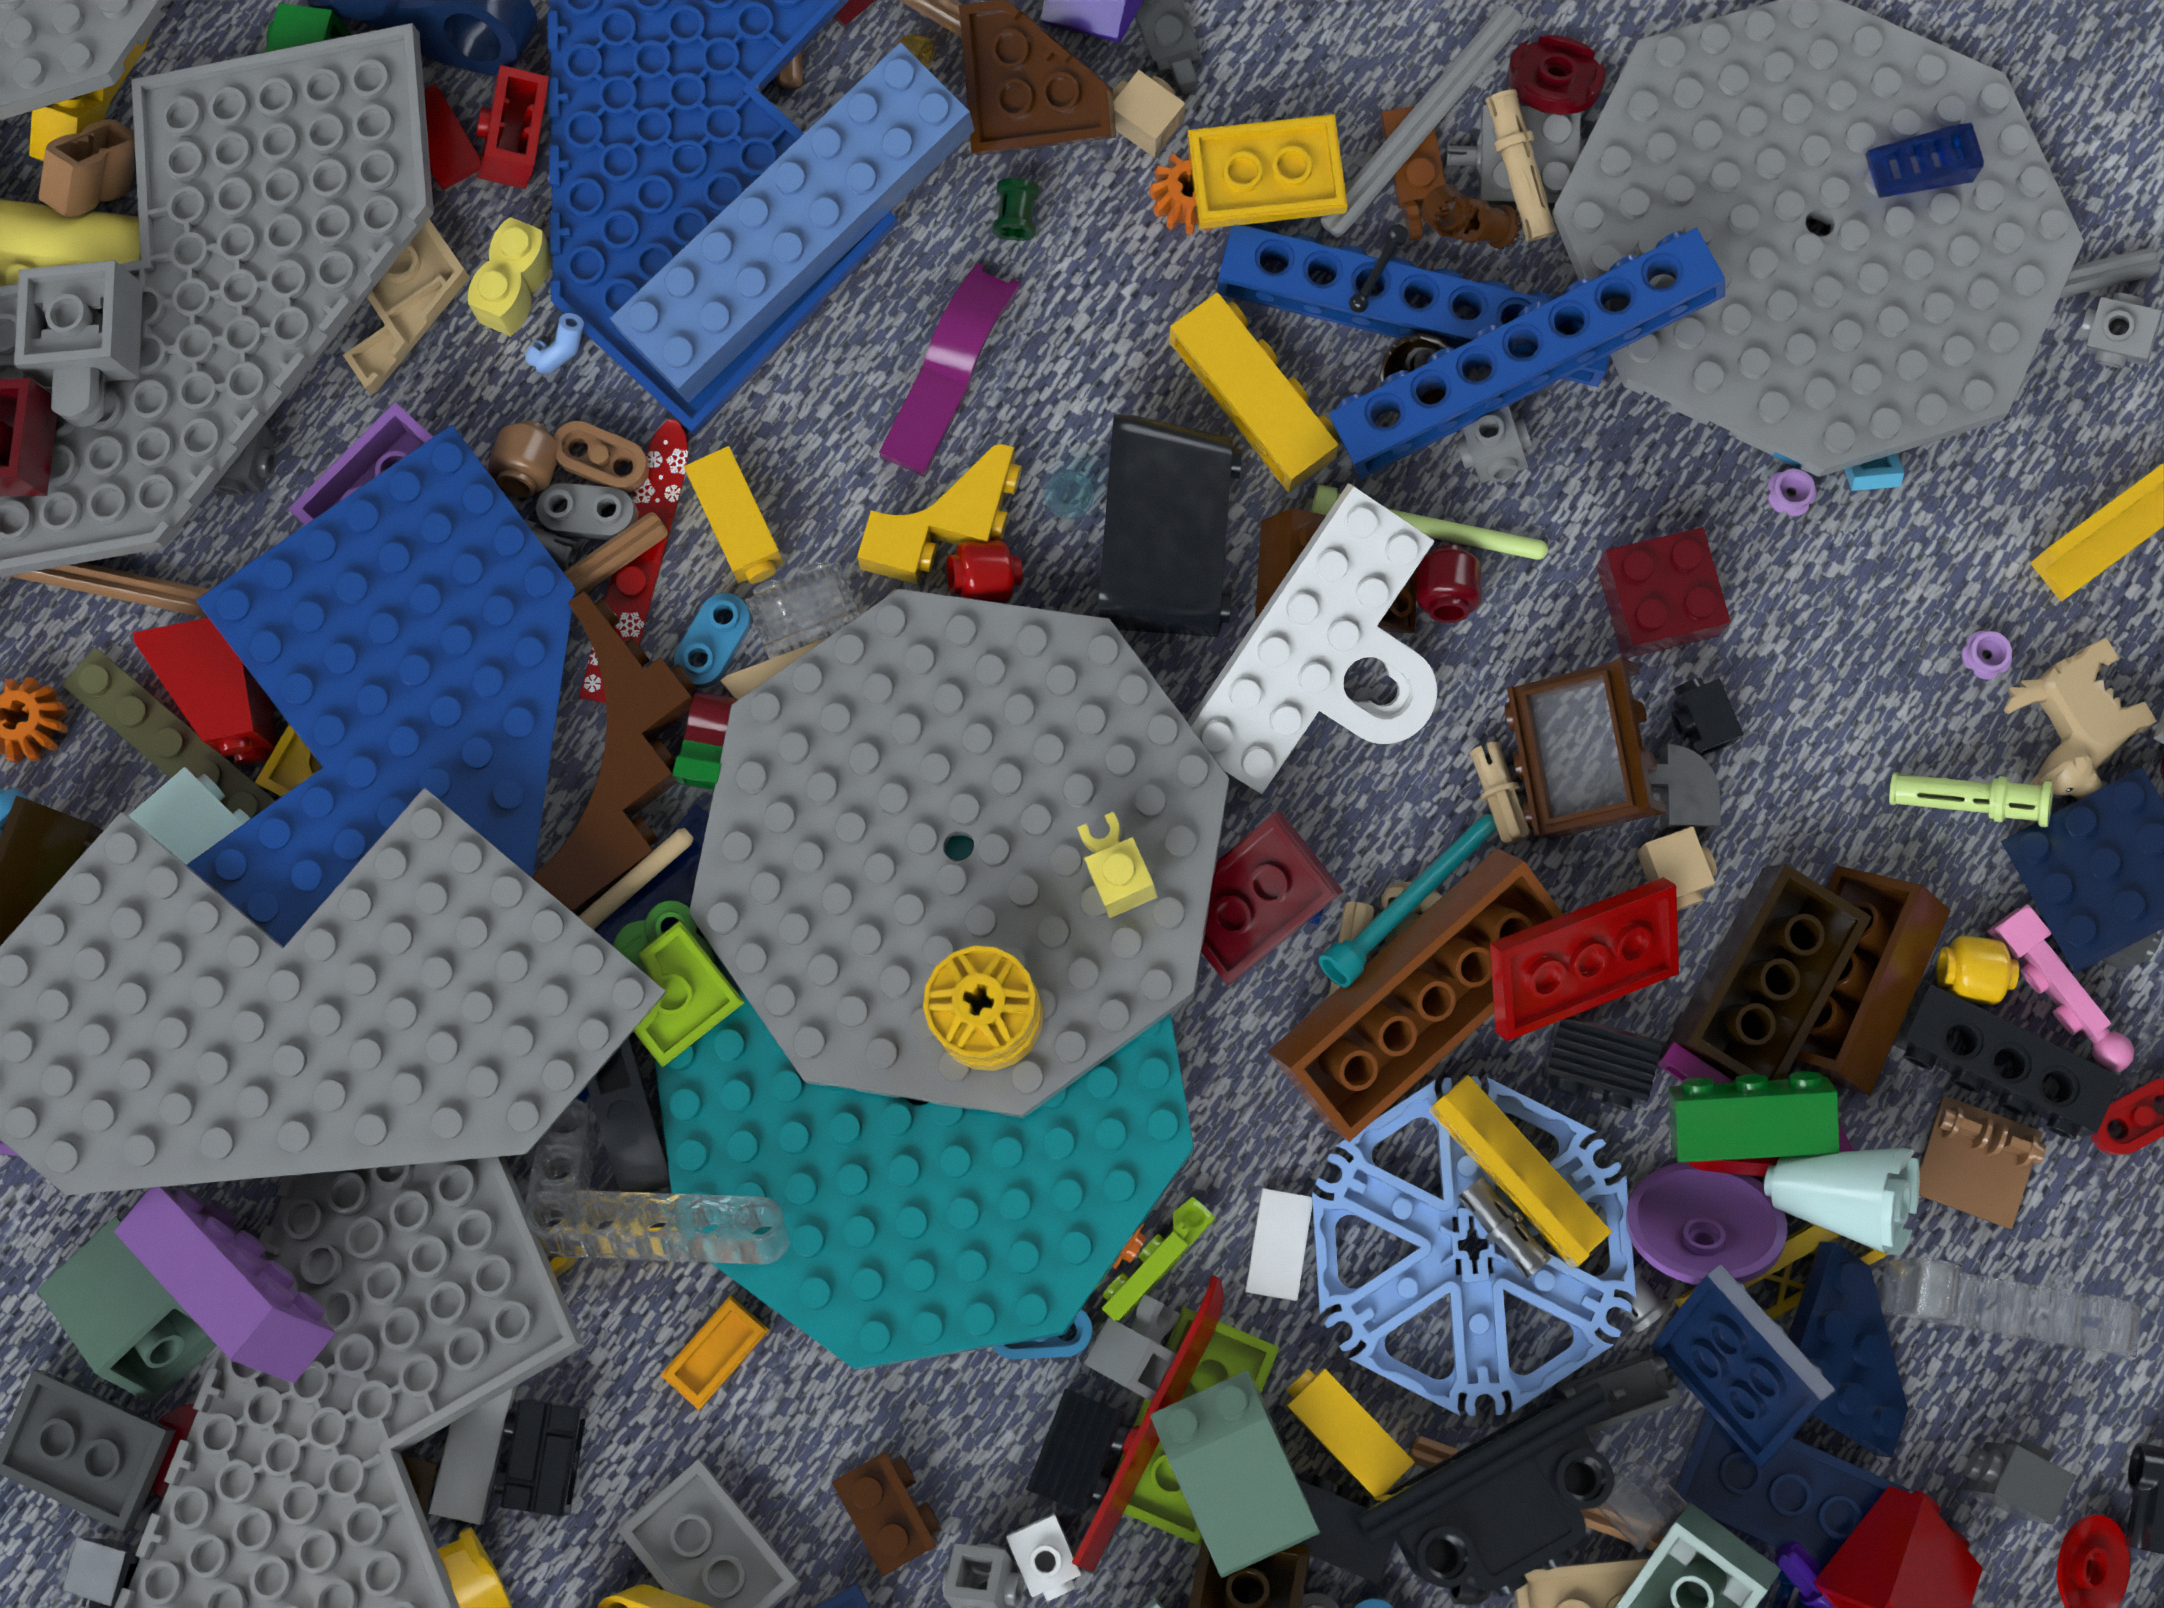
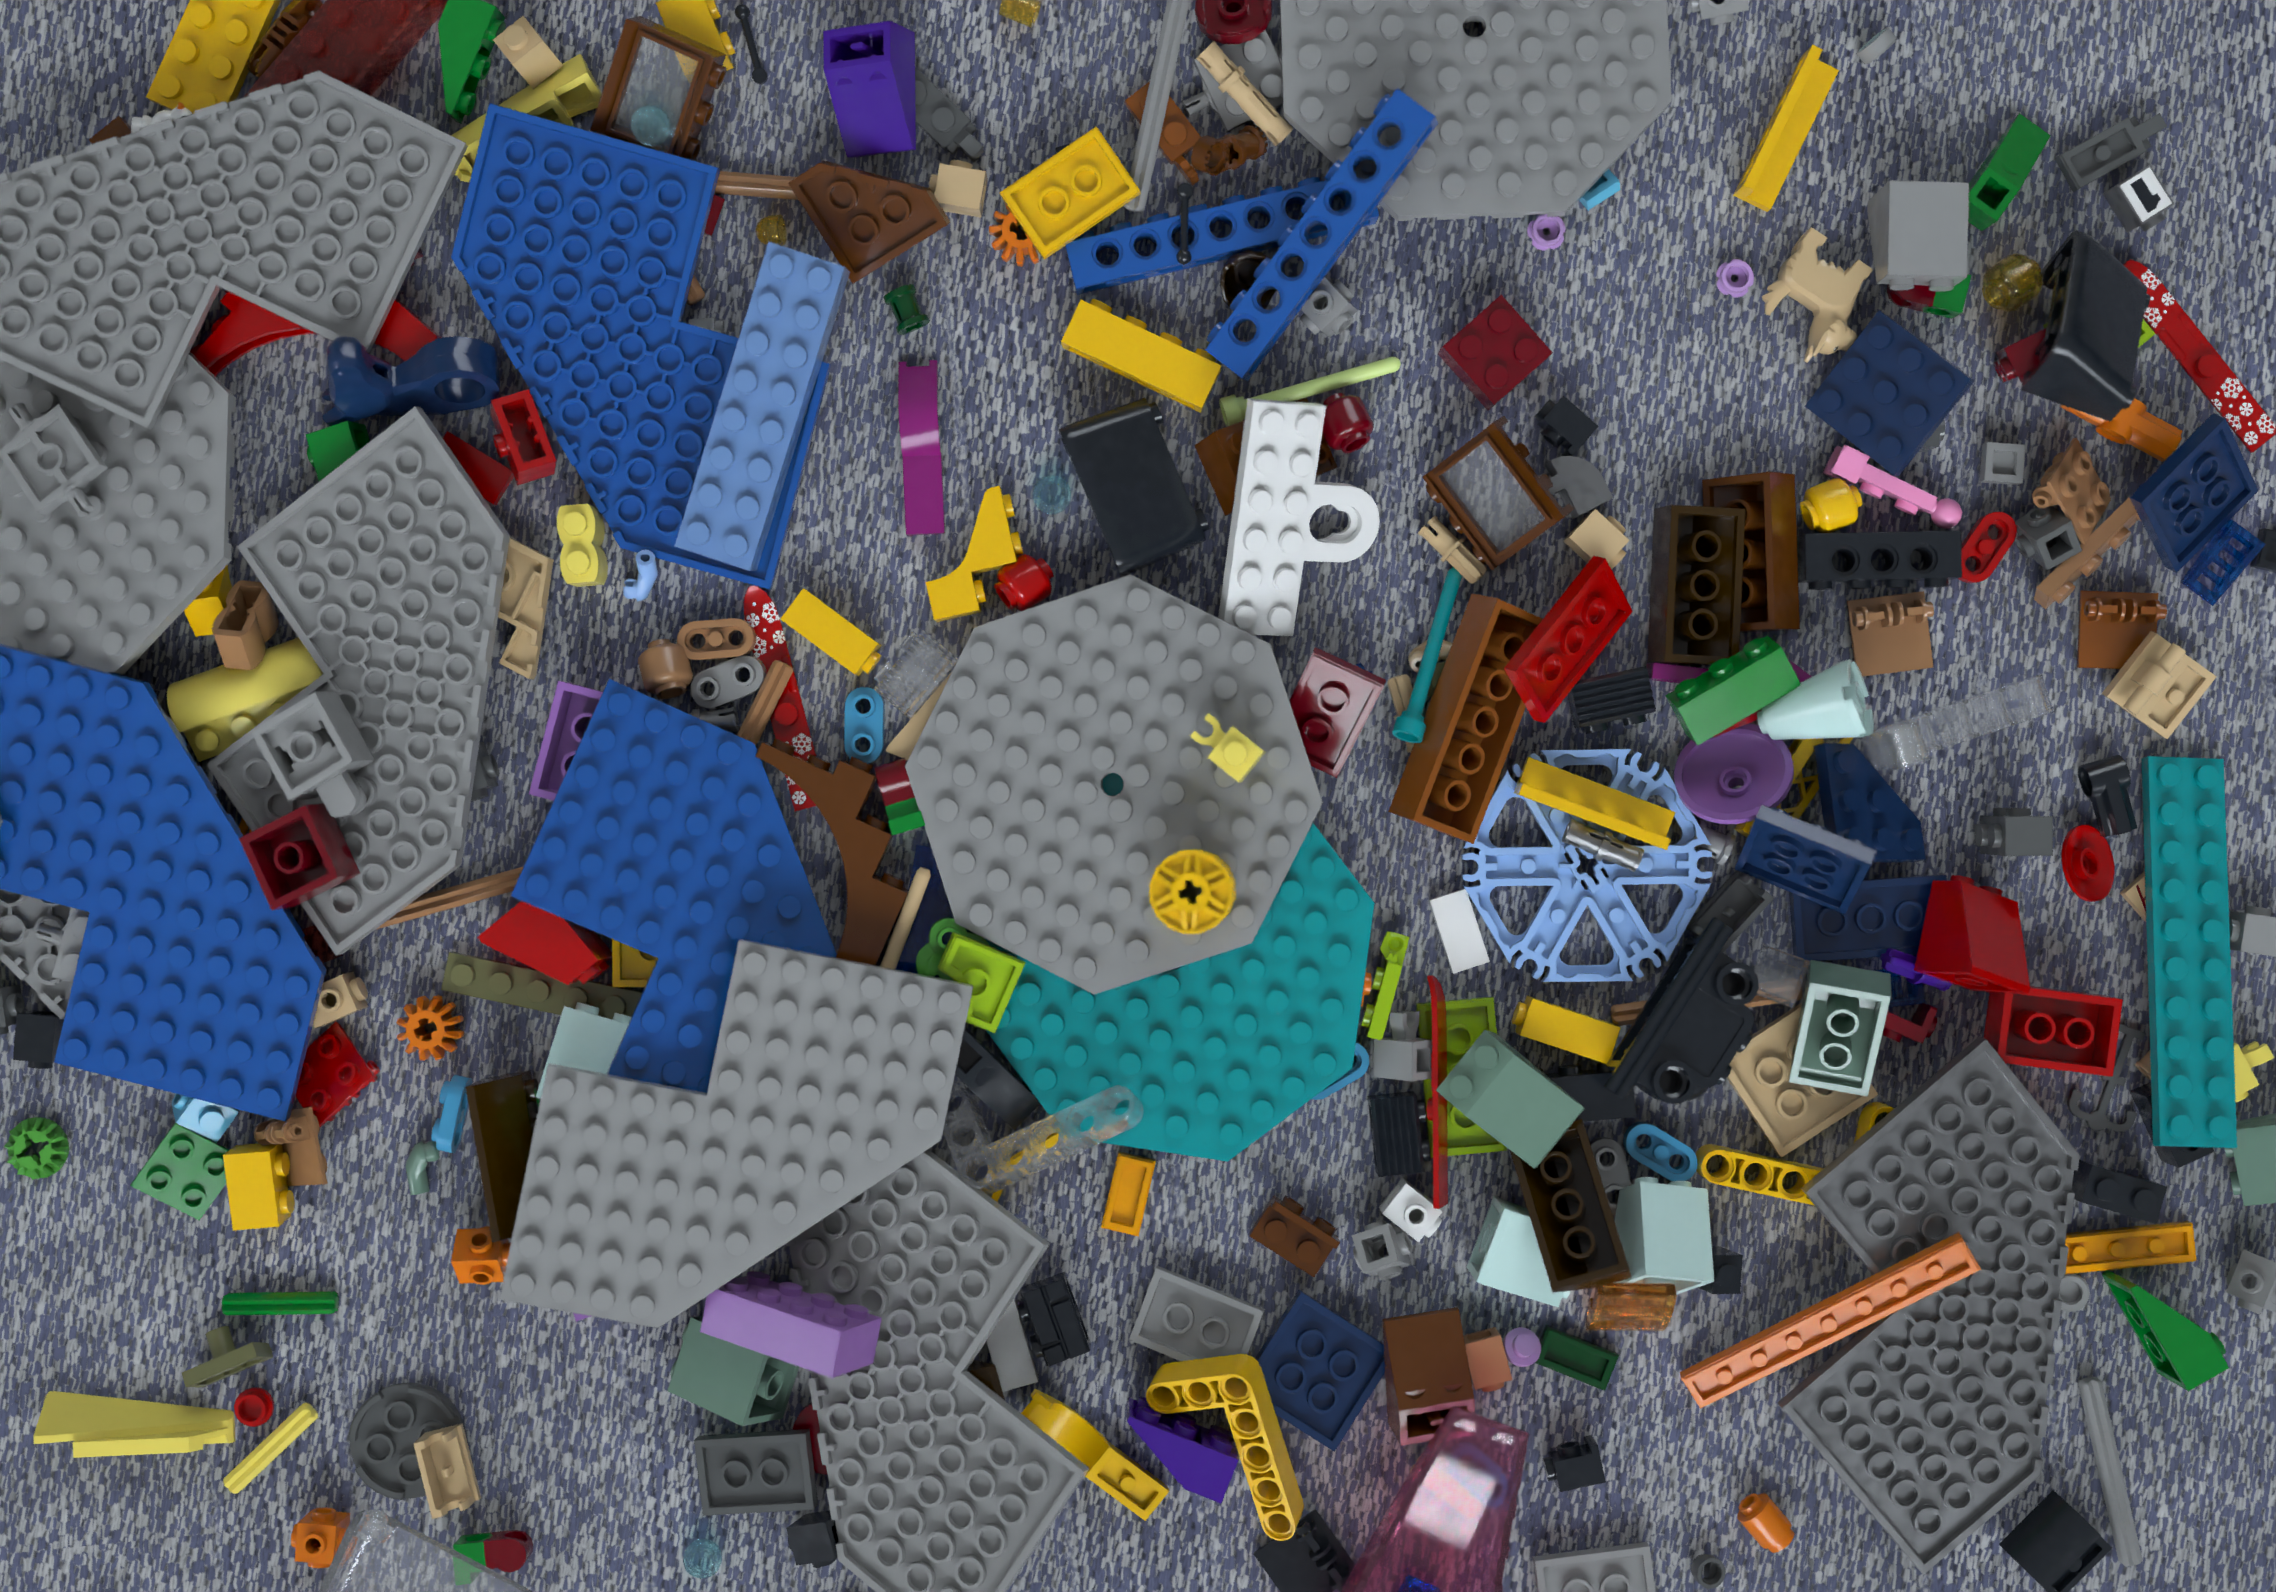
camera: 30 degrees left, 10 degrees up
(1999, 798) = (1791, 381): yellowish green pin -> none

